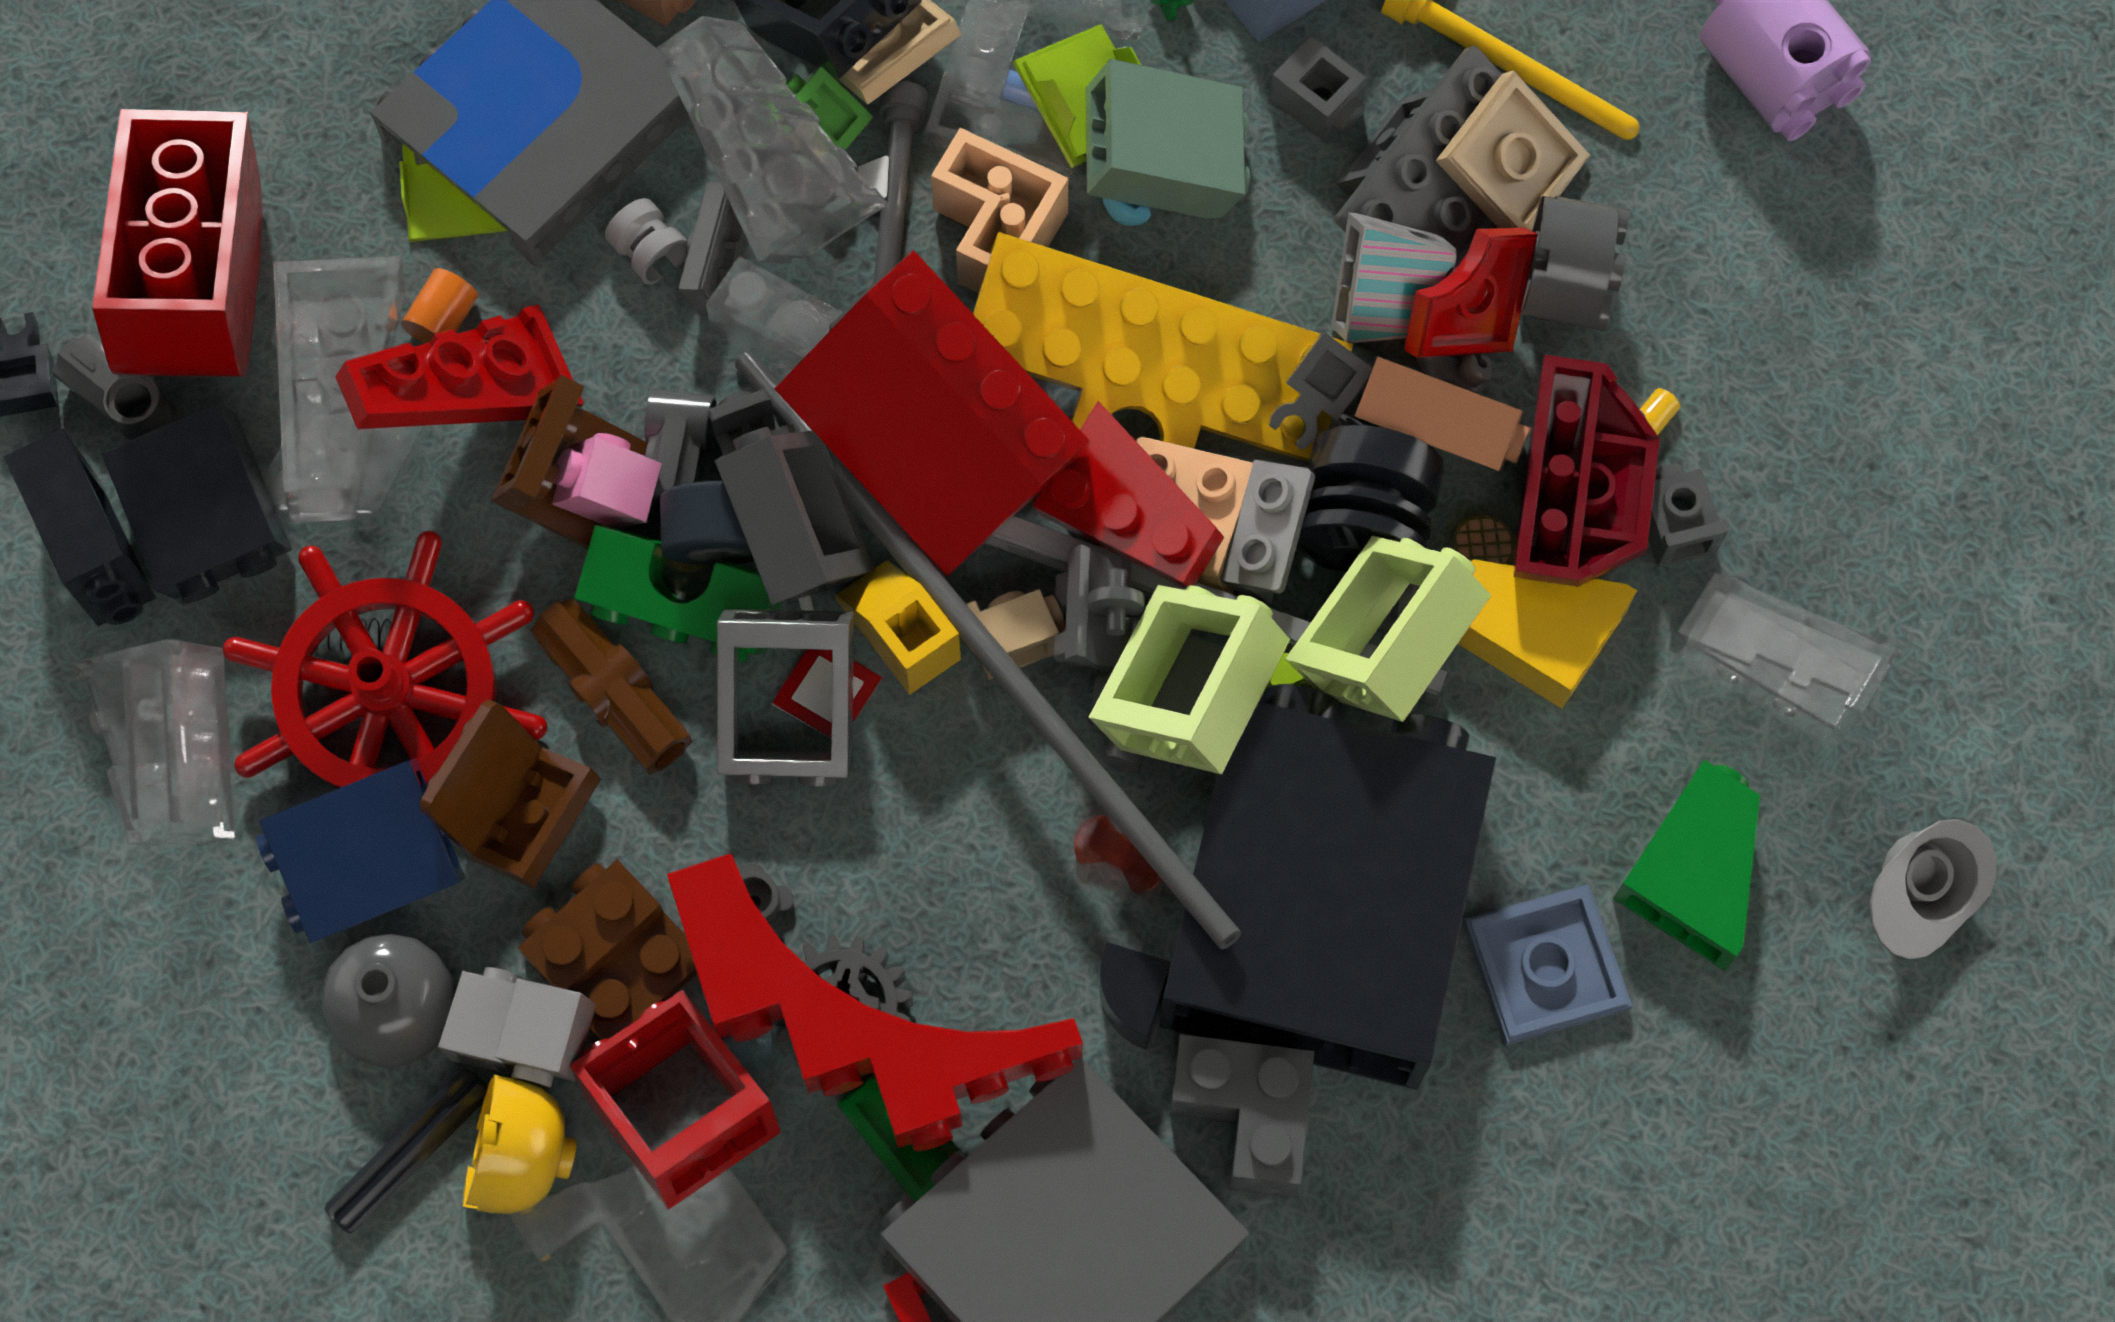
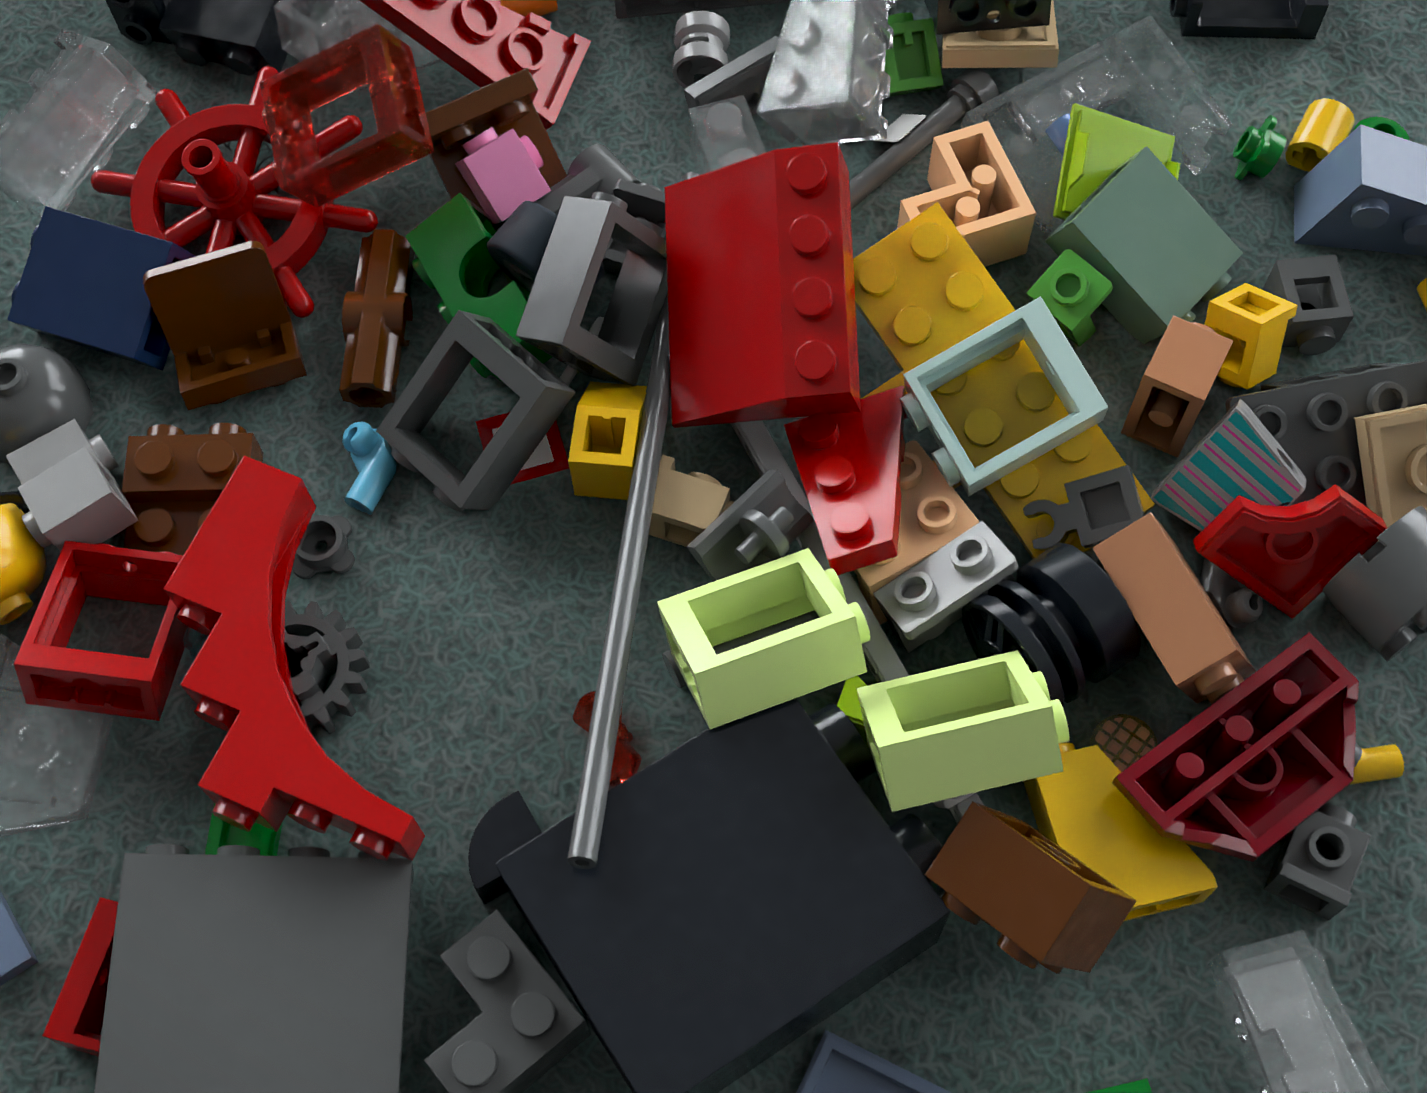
camera: 45 degrees right, 5 degrees down
(487, 485) = (398, 107): none -> clear red window
(726, 803) = (374, 463): none -> medium azure arm
(1148, 224) = (1072, 294): none -> bright green bracket
(1211, 294) = (1056, 359): none -> light aqua window
(1291, 237) = (1176, 385): none -> nougat brick
(1300, 154) = (1256, 326): none -> yellow brick
(1529, 698) = (1028, 890): none -> reddish brown brick

